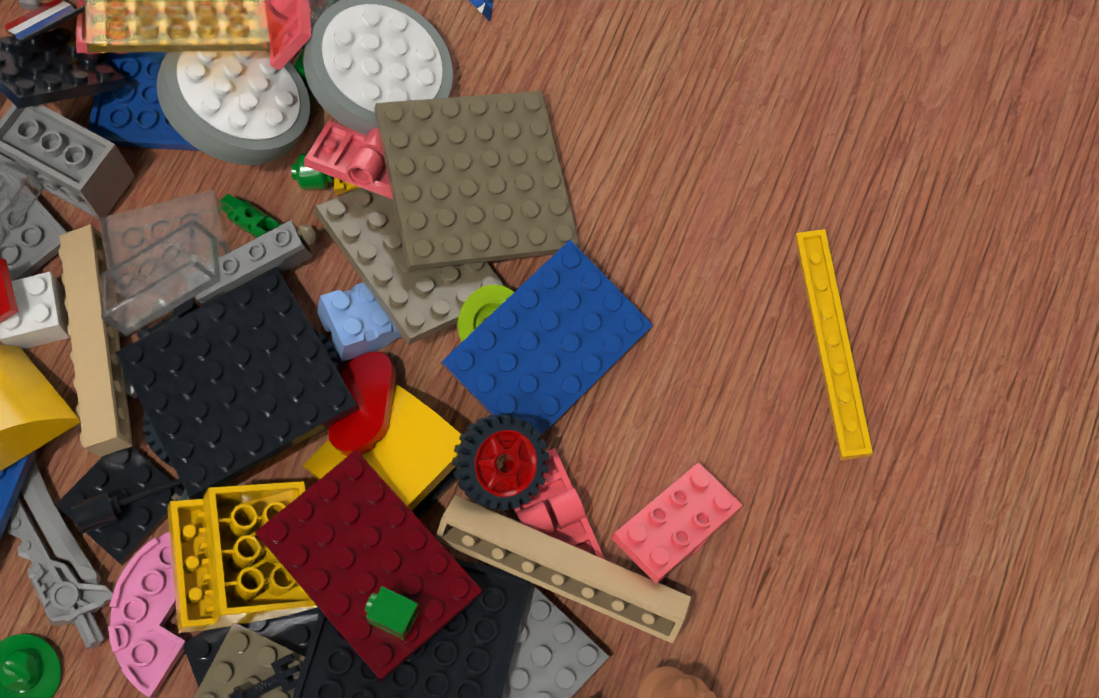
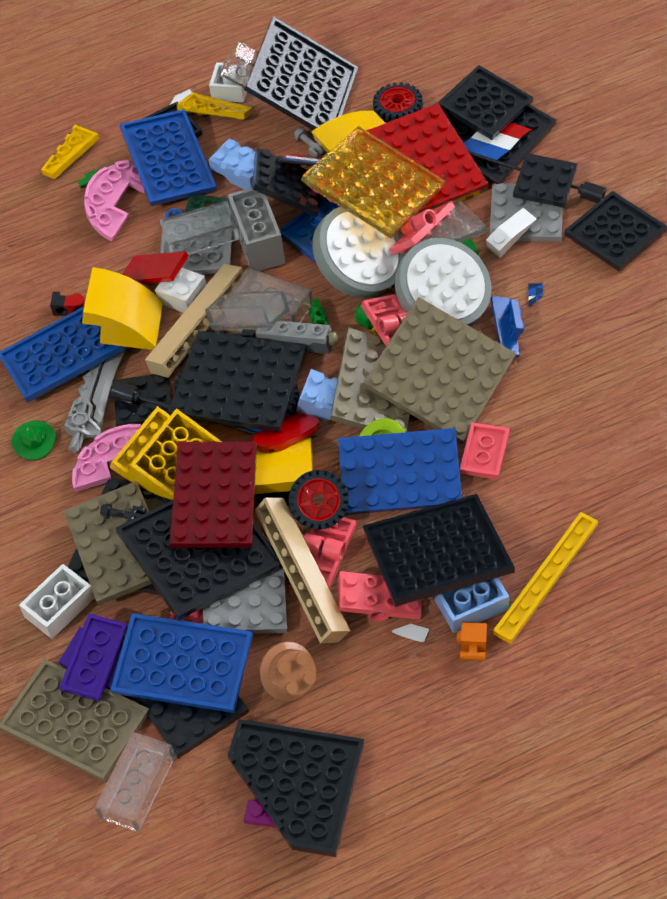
camera: 45 degrees right, 15 degrees down
(391, 612) = (200, 516): green brick -> none
(490, 57) = (507, 322): none -> blue bracket
(616, 240) = (484, 451): none -> coral plate
(695, 412) = (437, 549): none -> black plate
(748, 532) = (412, 632): none -> white sticker
(785, 438) = (473, 603): none -> light blue brick
(829, 485) = (473, 641): none -> orange brick

